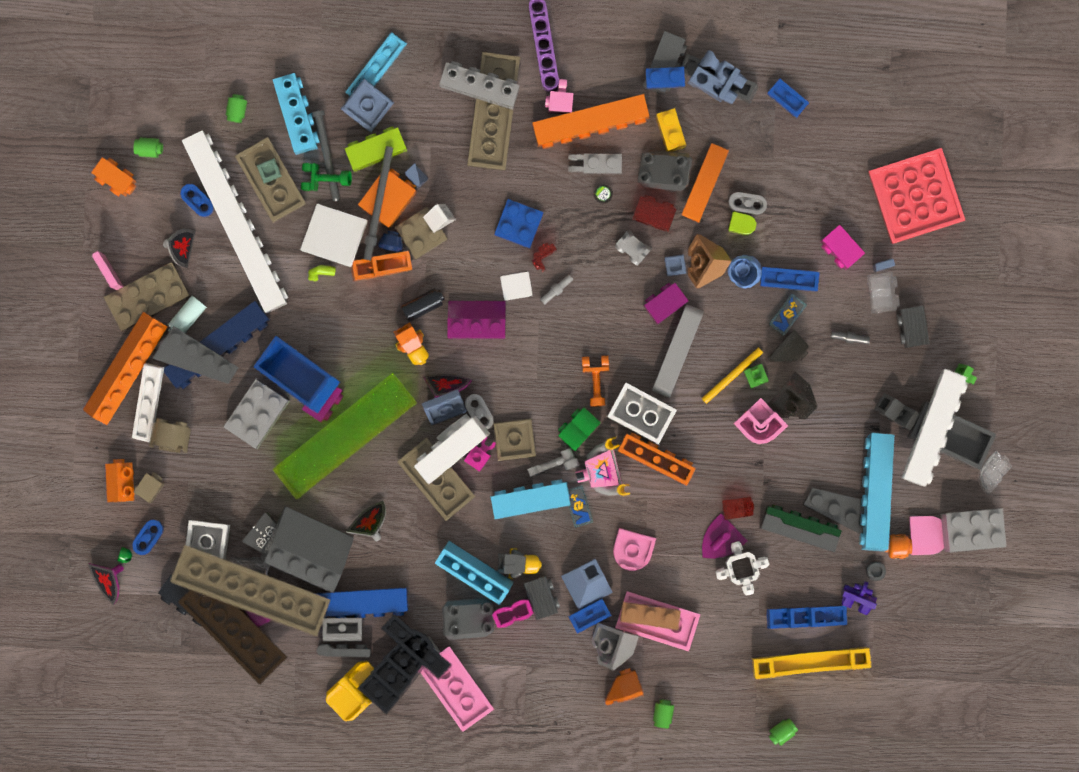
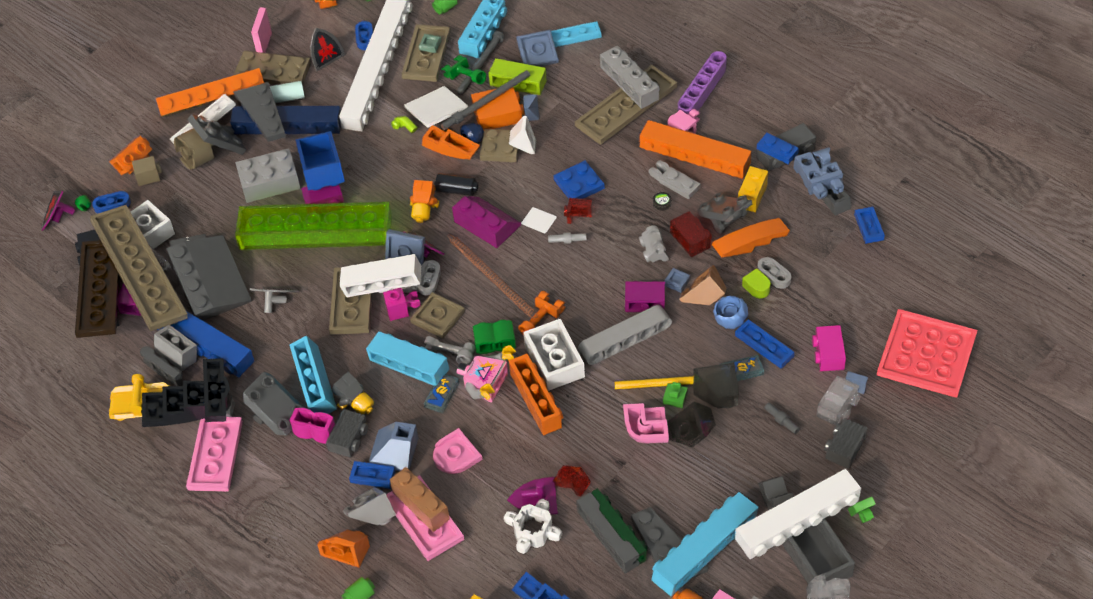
camera: 45 degrees right, 35 degrees down
(181, 412) = (217, 134): none -> dark grey plate
(528, 373) = (490, 278): none -> nougat piece

